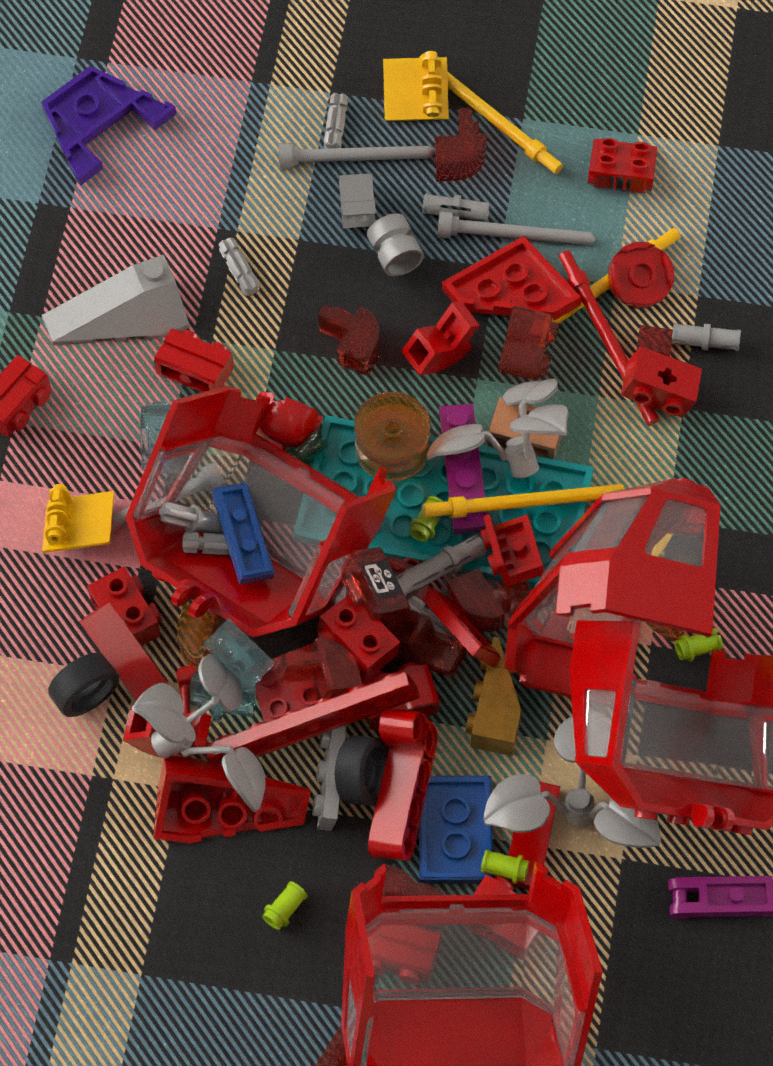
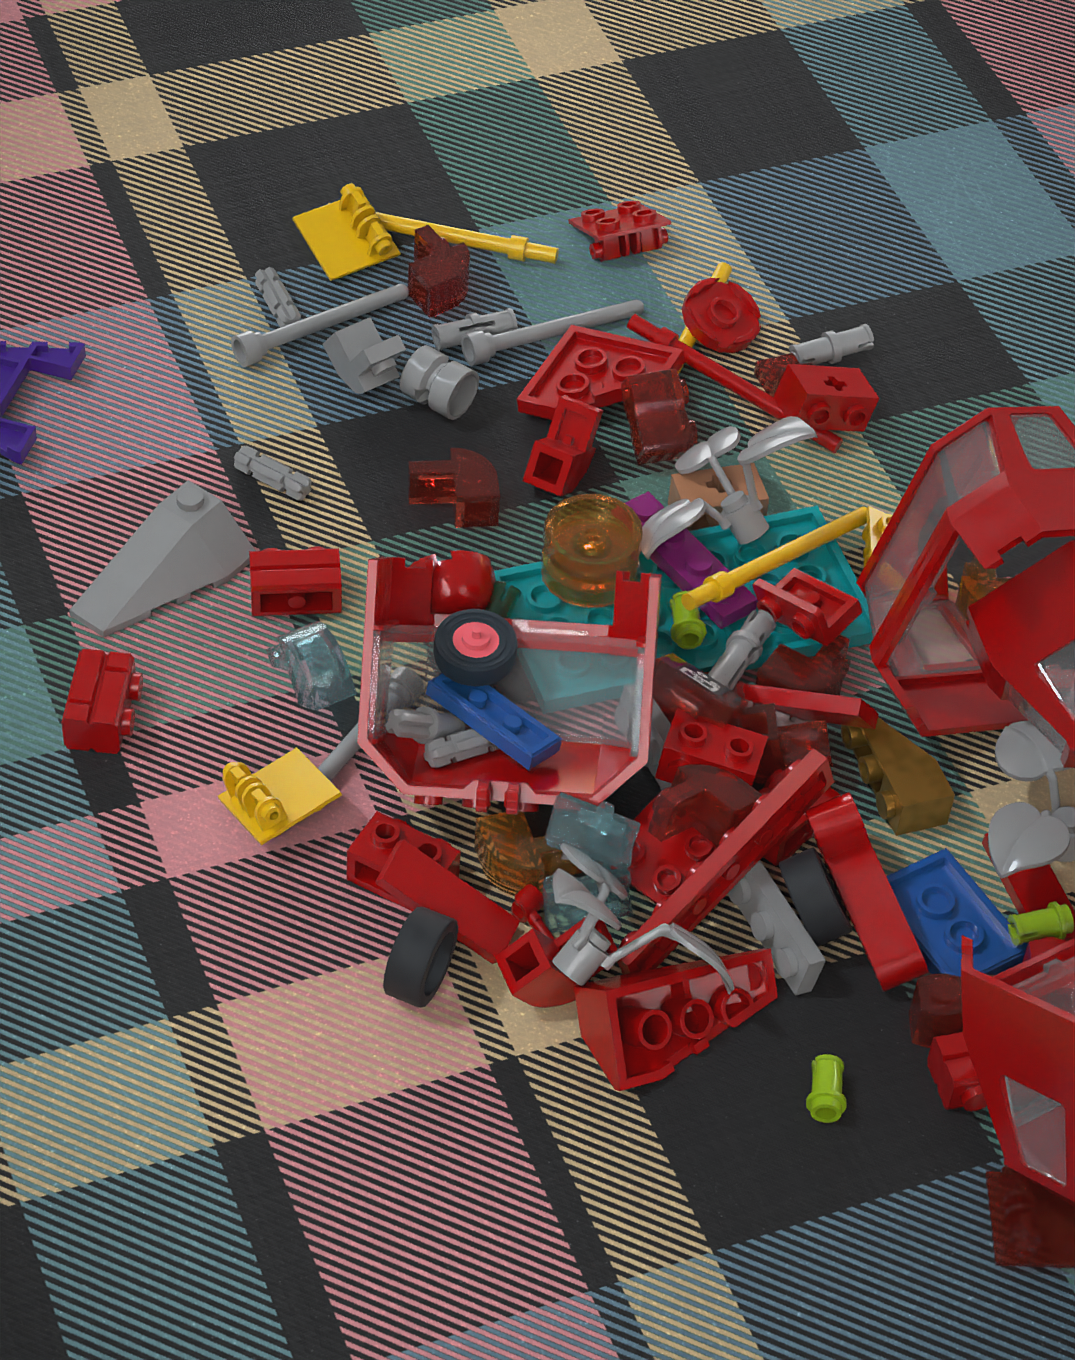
camera: 35 degrees left, 15 degrees down
(257, 478) = (475, 647): none -> black wheel

